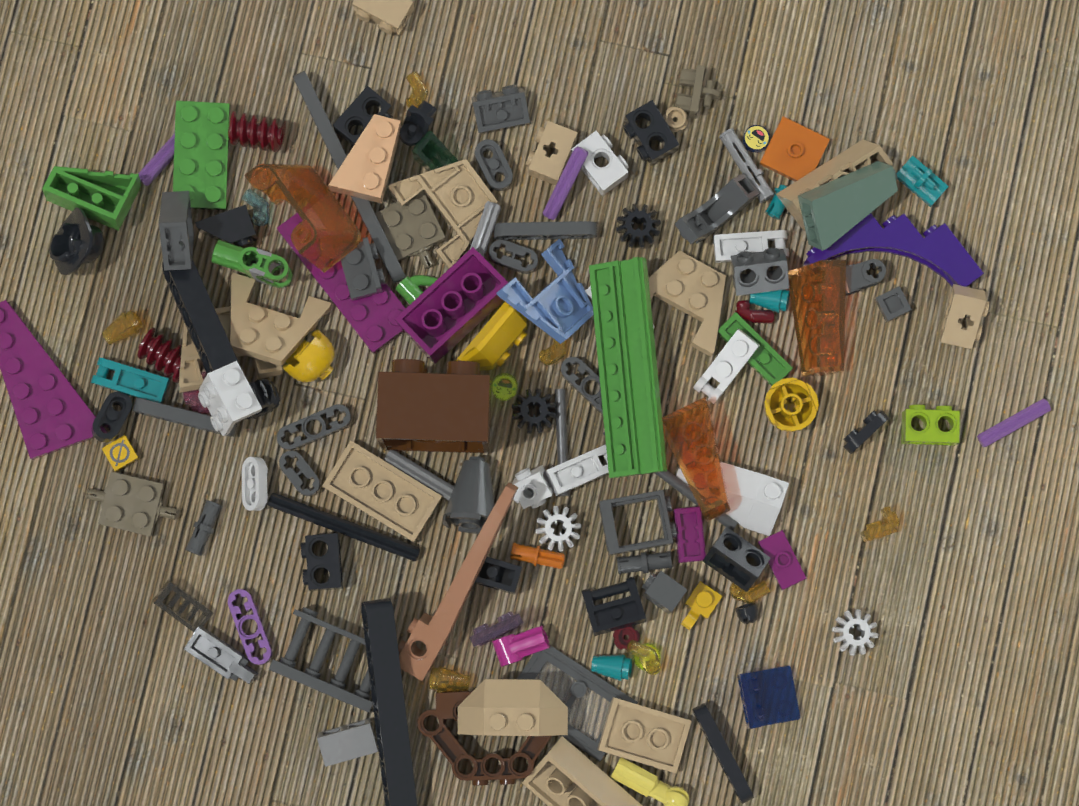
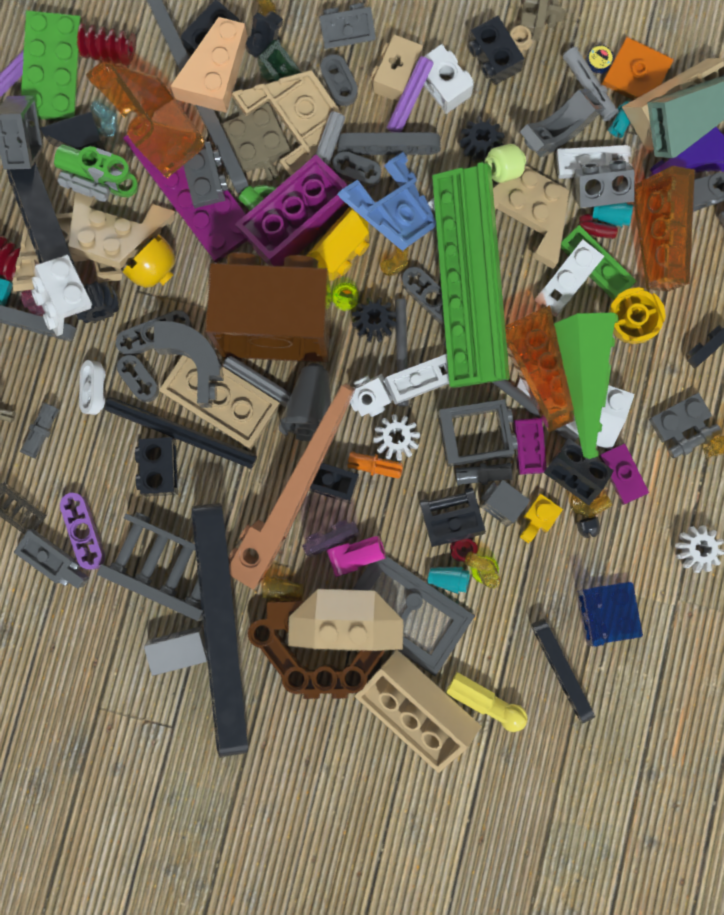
camera: 10 degrees right, 0 degrees up
(240, 280) = (83, 186): none -> light grey axle
(348, 437) = (180, 339): none -> dark grey arch
(644, 735) = (481, 650): tan plate -> none
(661, 252) = (506, 162): none -> yellowish green head
(740, 443) = (585, 352): none -> bright green wedge
(838, 503) = (680, 418): none -> dark grey plate

